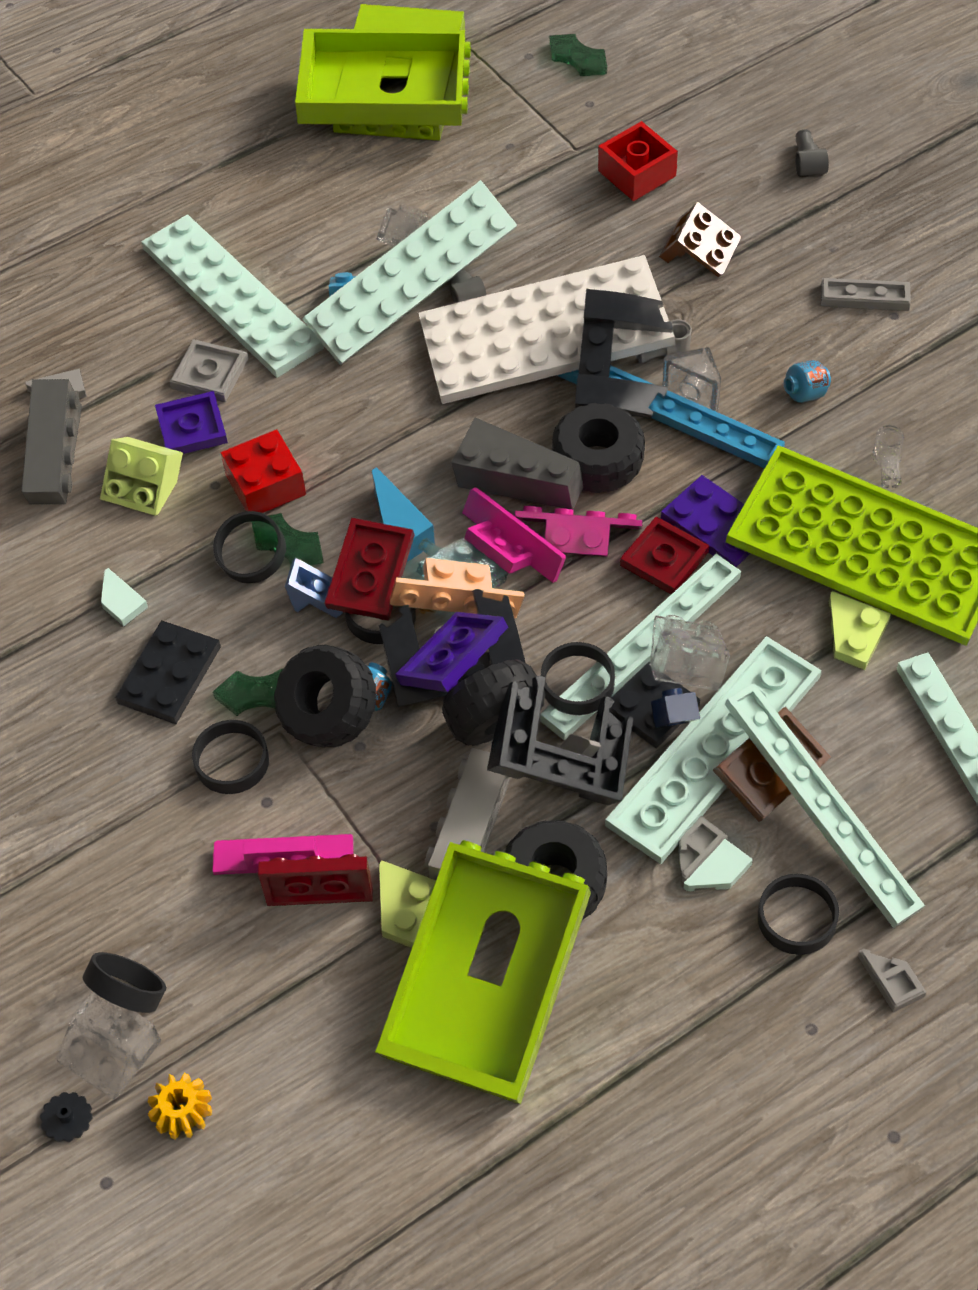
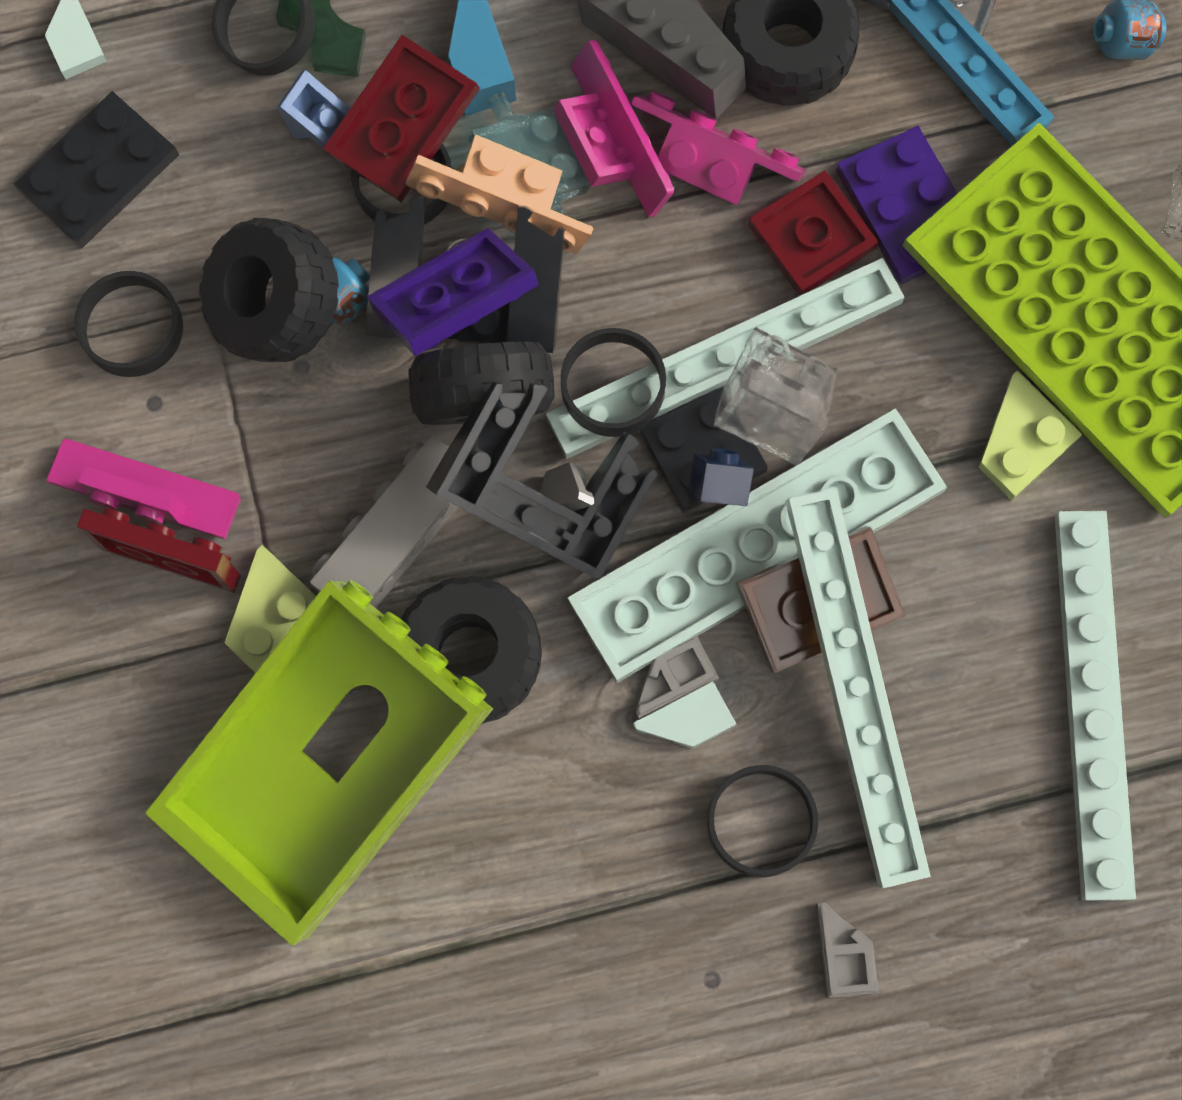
camera: 20 degrees right, 20 degrees up
(247, 692) = (182, 235): clear green tile -> none

